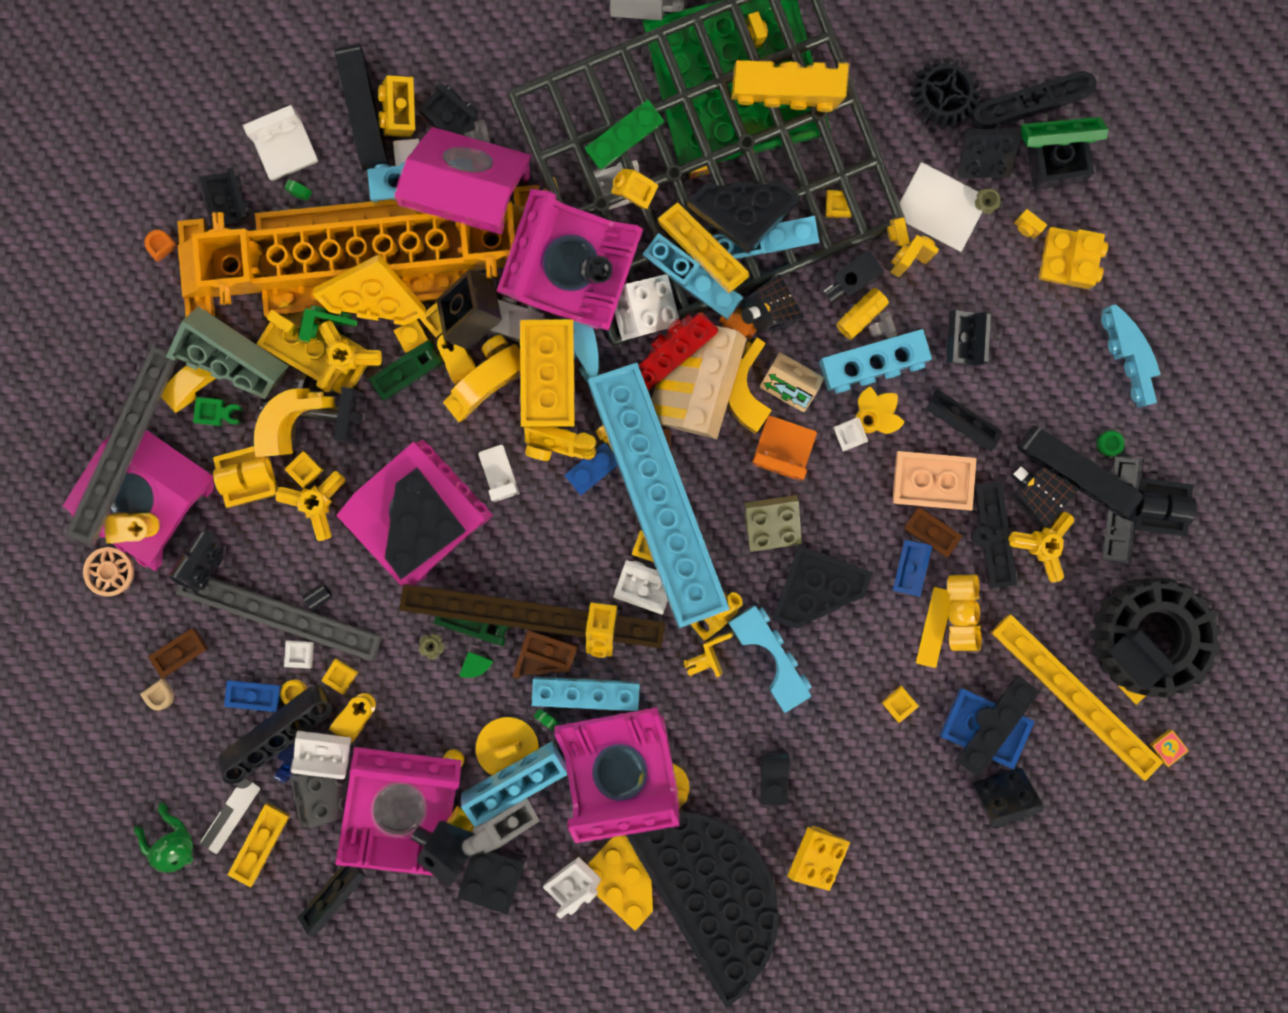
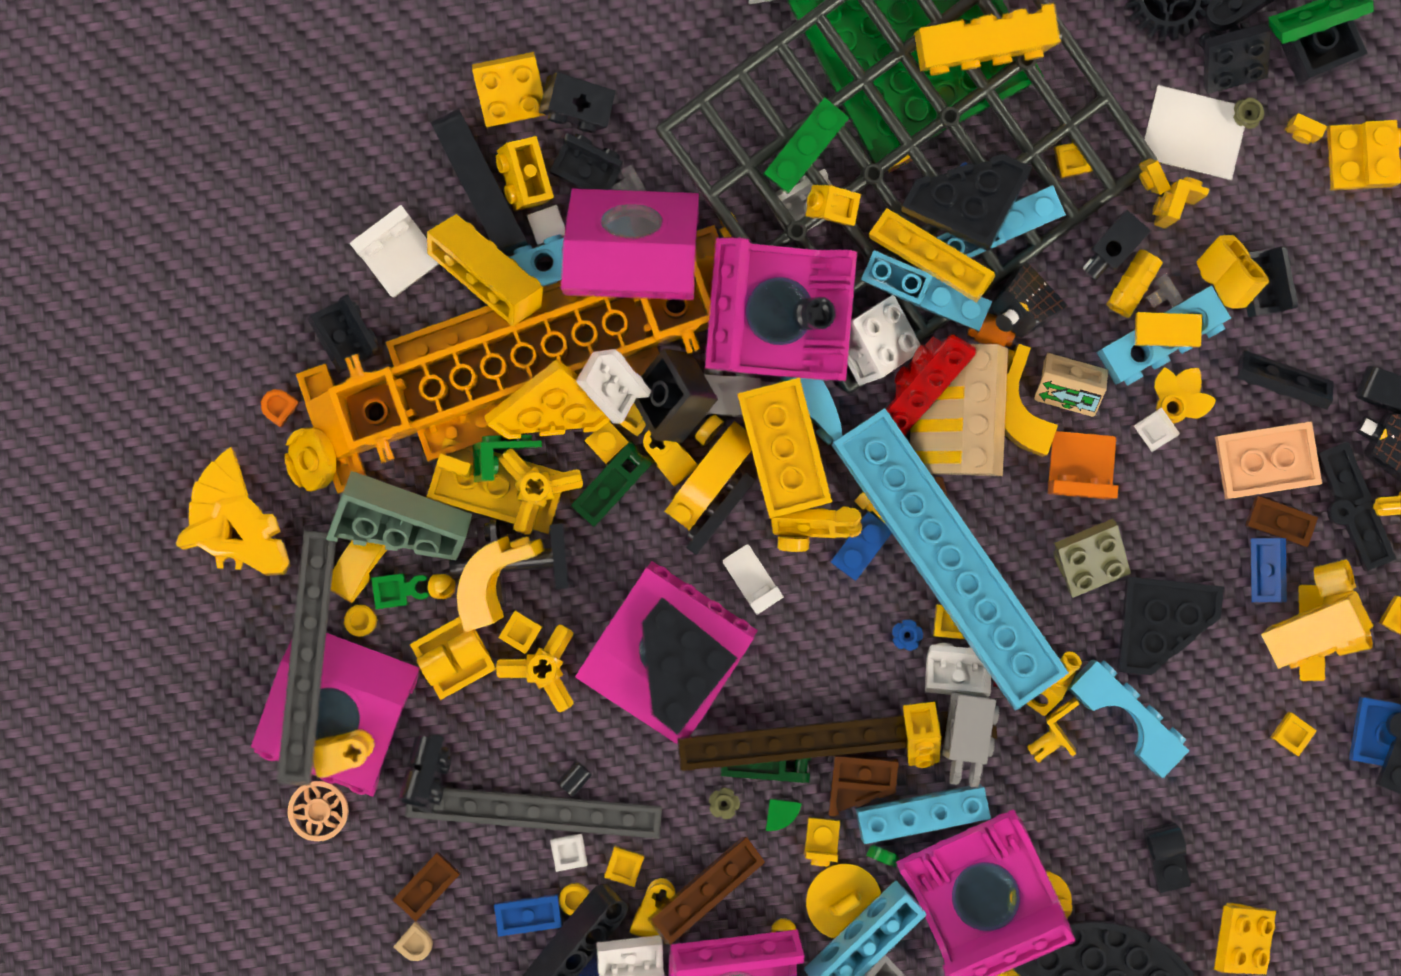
camera: 20 degrees left, 0 degrees up
(92, 312) = (223, 502): none -> yellow animal
(171, 291) = (310, 459): none -> yellow tile
(180, 429) = (360, 620): none -> yellow tile
(248, 414) = (441, 586): none -> yellow hinge
(298, 190) = (429, 301): green tile -> none
(345, 173) = (484, 269): none -> yellow brick
(396, 711) = (706, 890): none -> reddish brown plate
(404, 37) = (509, 88): none -> yellow plate
(420, 286) = (612, 384): none -> white bracket
(467, 60) = (594, 101): none -> black brick
(484, 414) = (718, 512): none -> black plate
(501, 695) = (822, 841): none -> yellow bracket
(618, 548) = (900, 629): none -> blue plate
(638, 639) = (969, 734): none -> light grey hinge
(878, 355) = (1168, 329): none -> yellow tile
(938, 626) = (1318, 631): none -> yellow brick
(941, 322) = (1232, 272): none -> yellow brick

